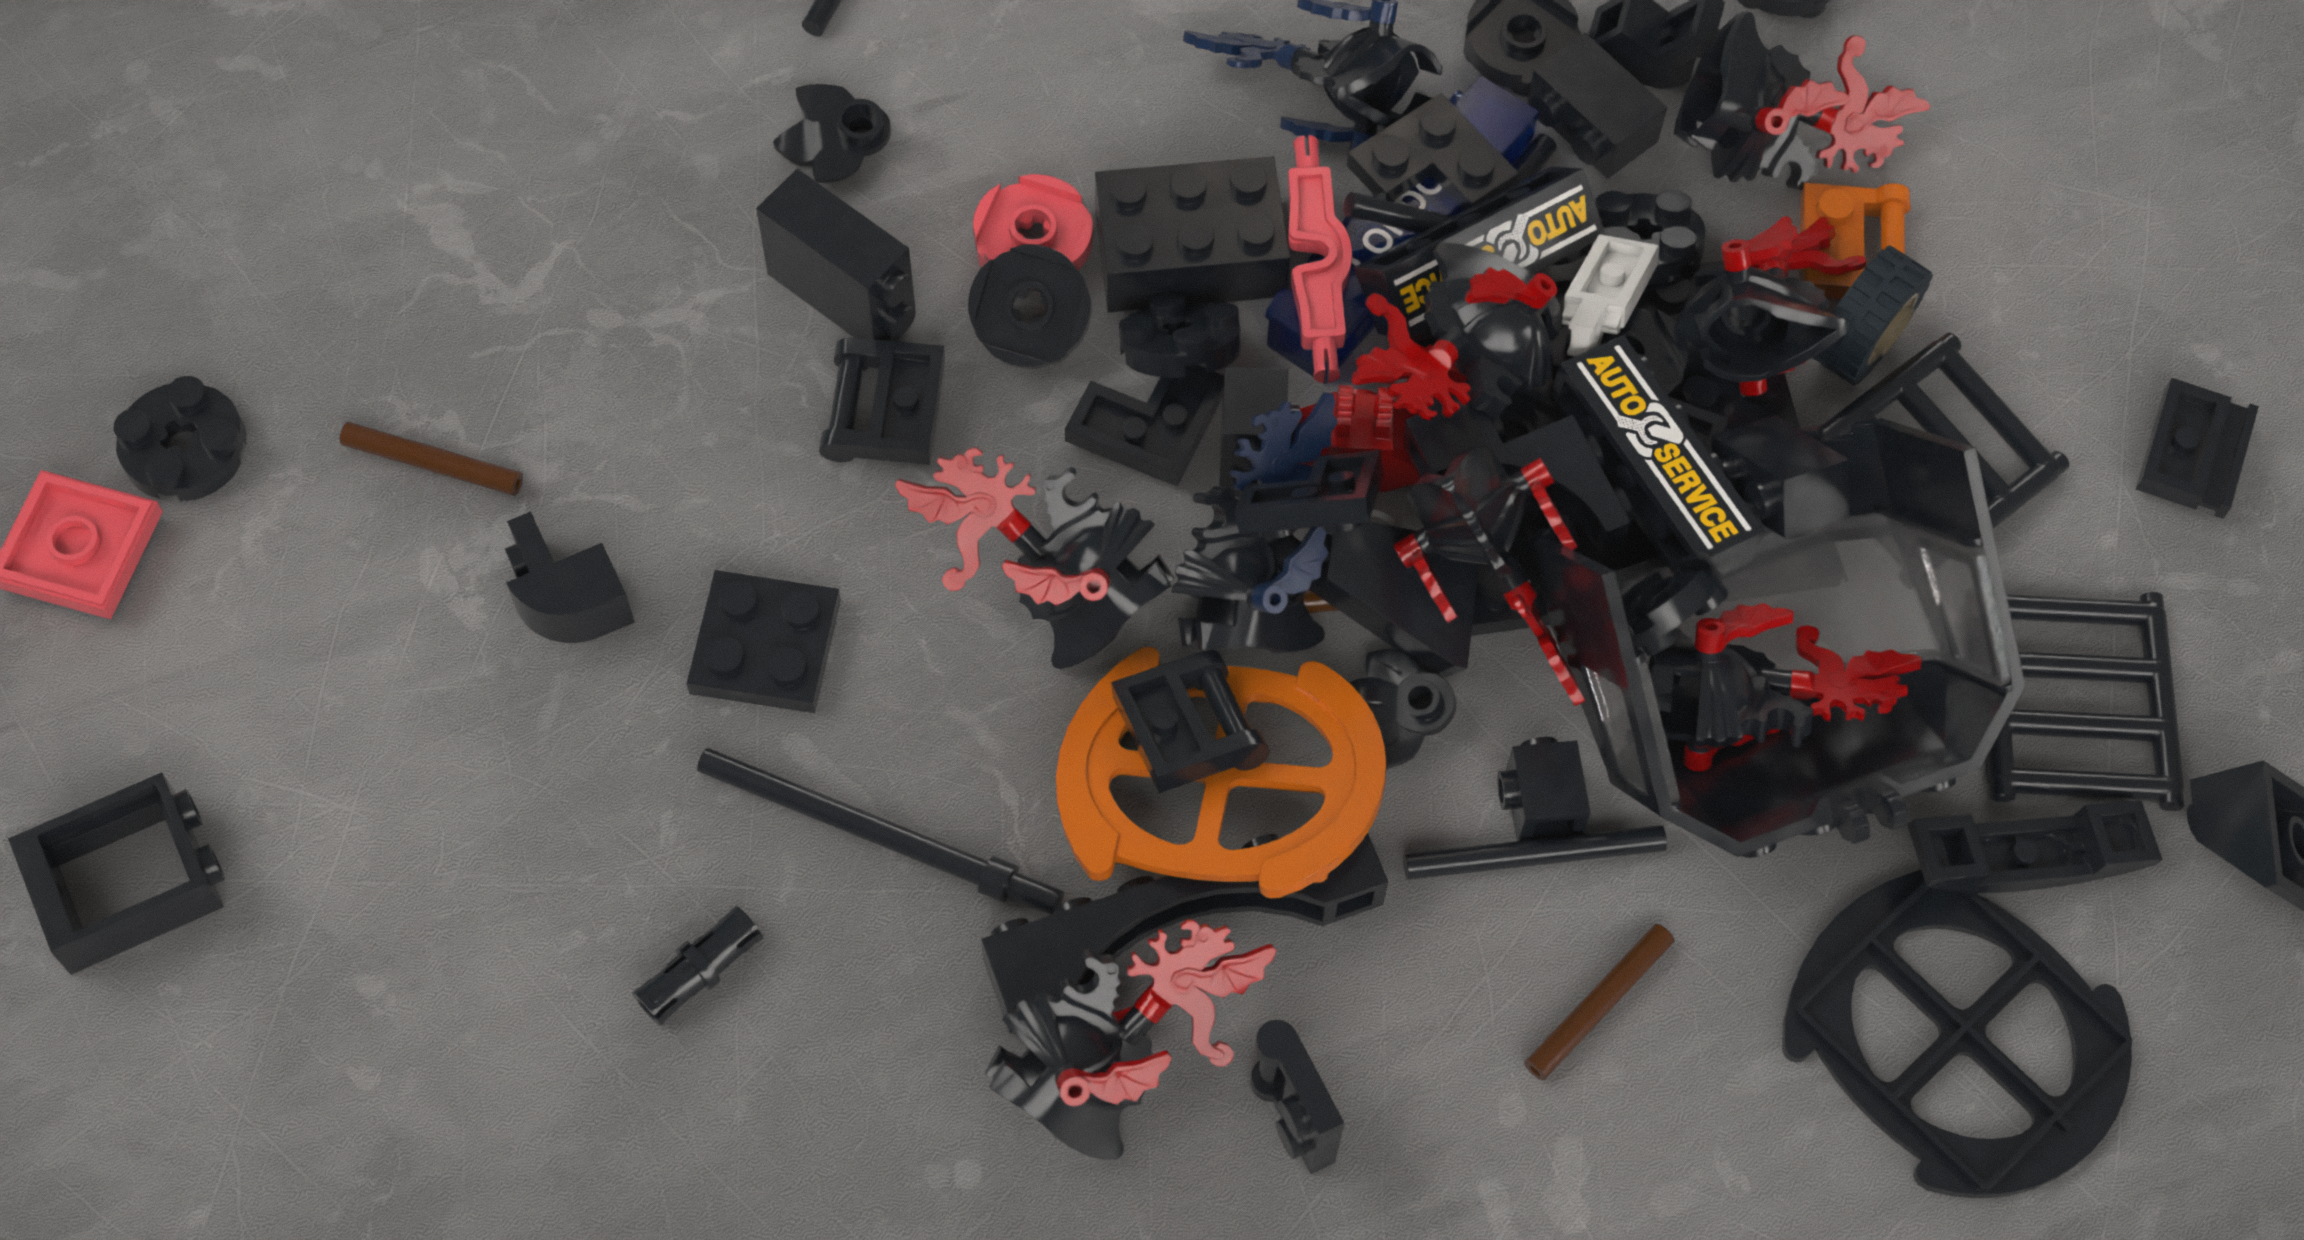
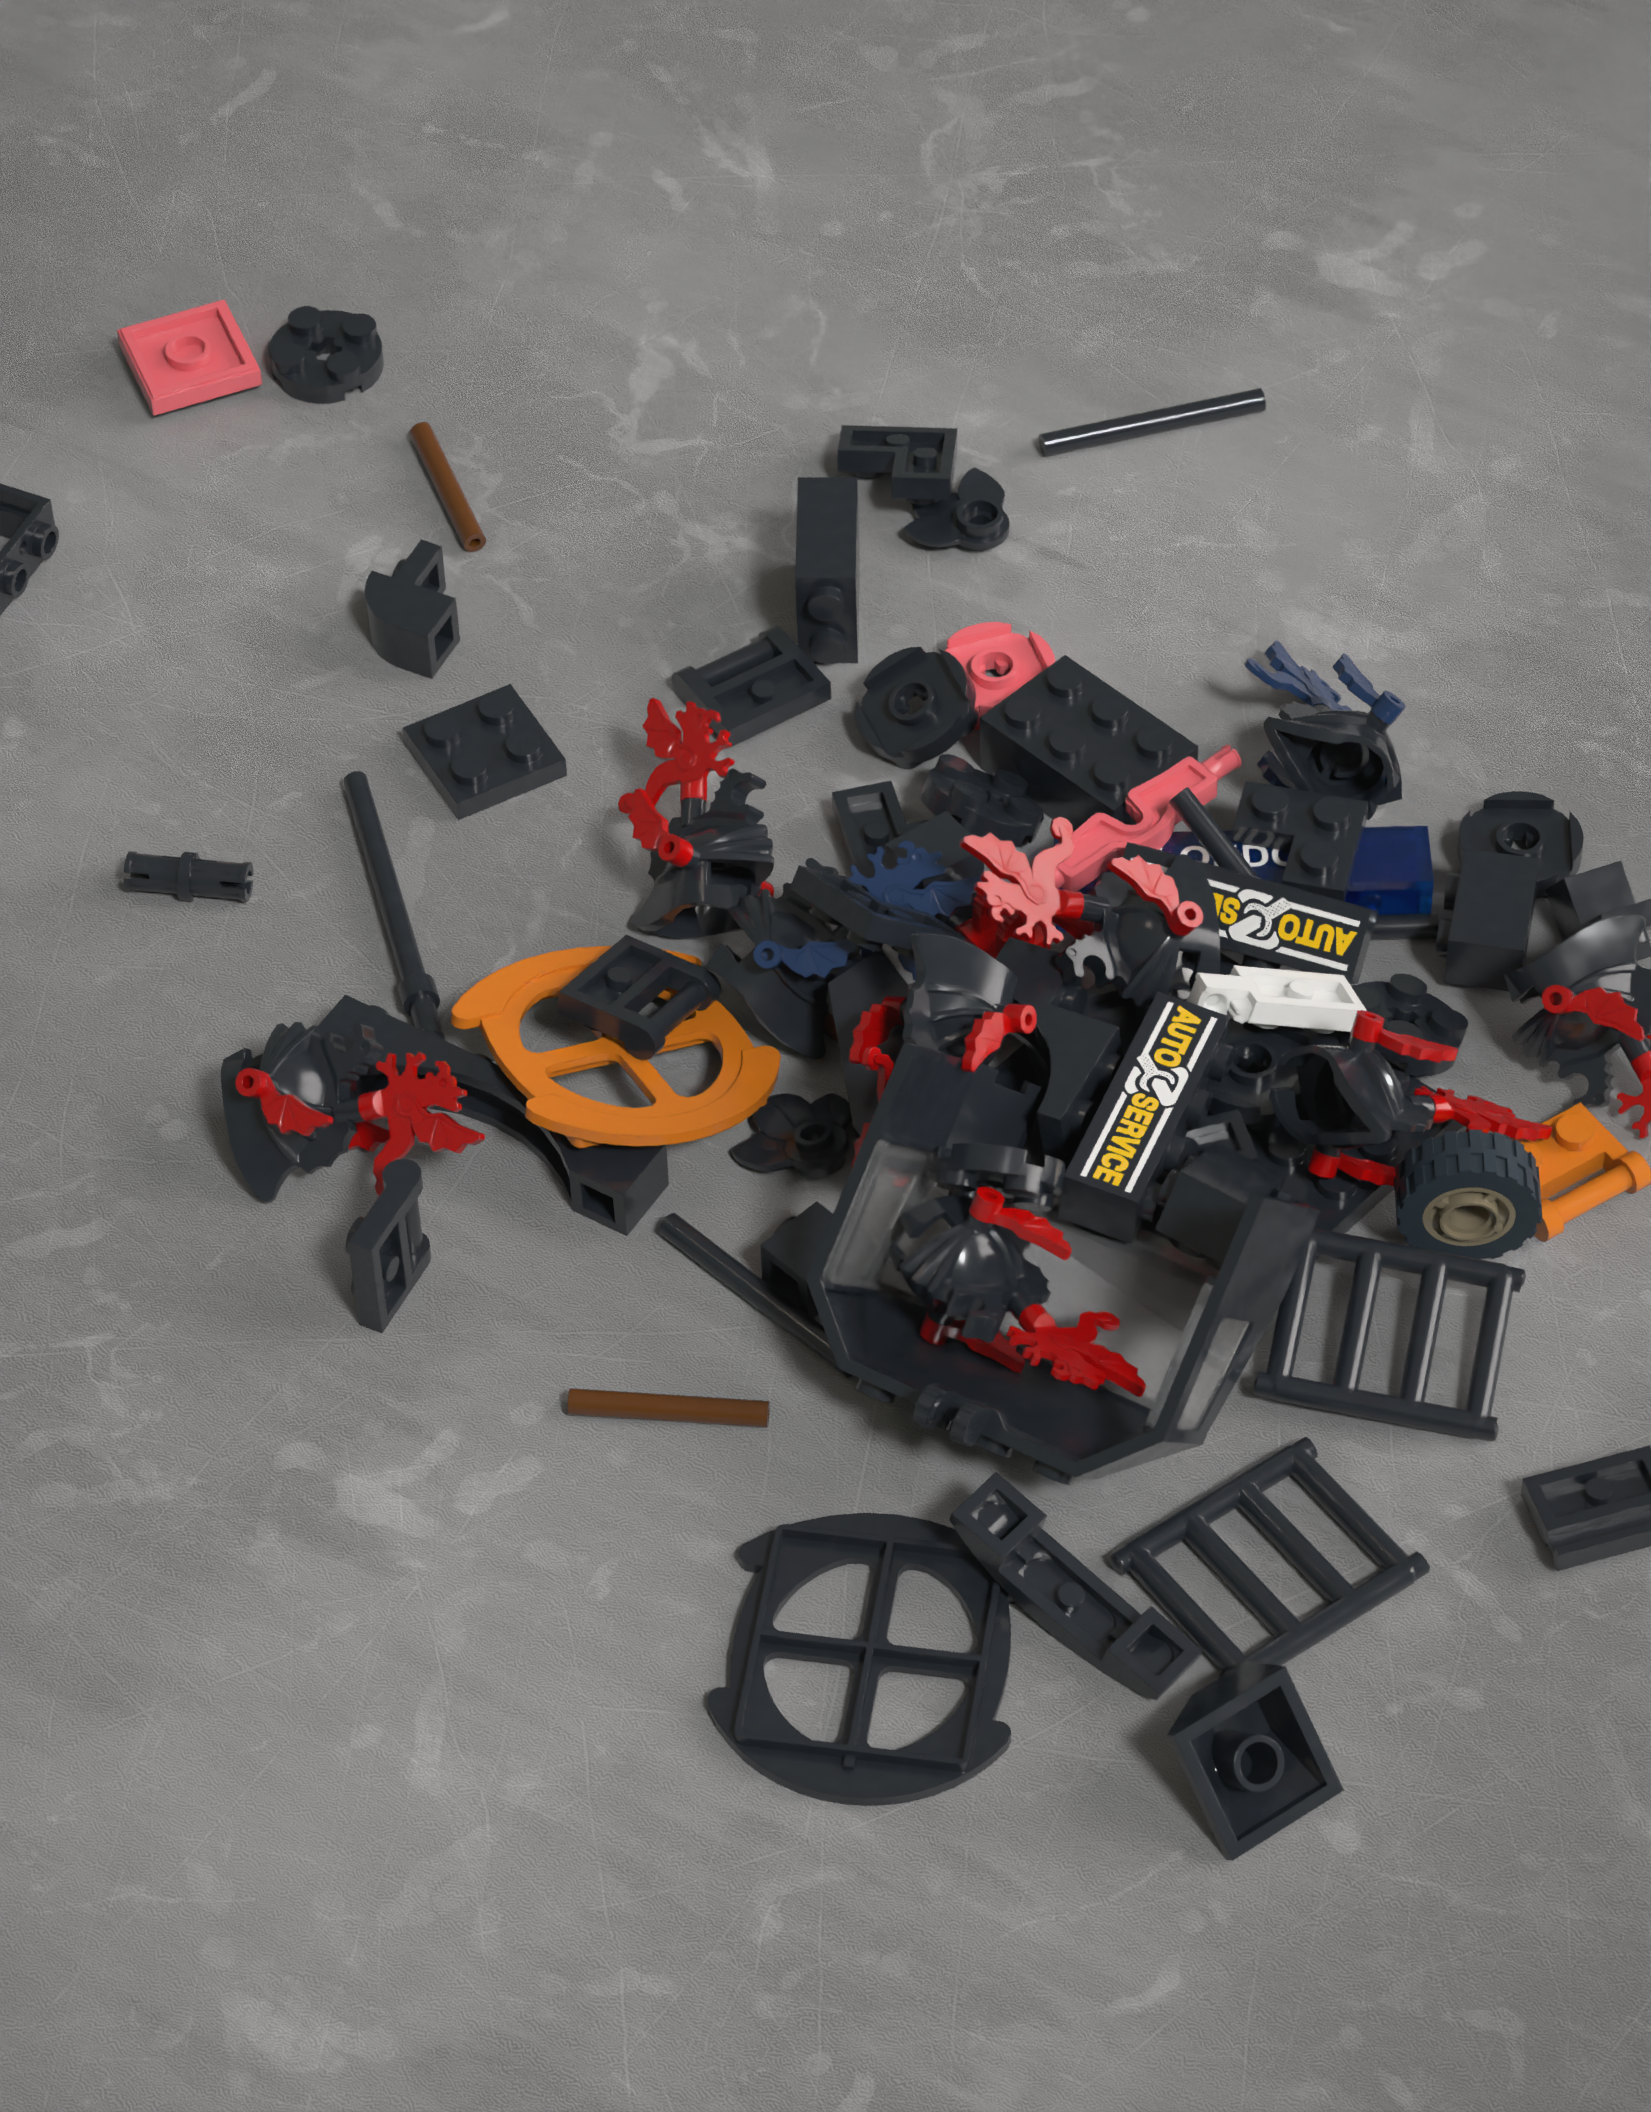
camera: 55 degrees right, 15 degrees down
(744, 113) = (917, 457): none -> black plate

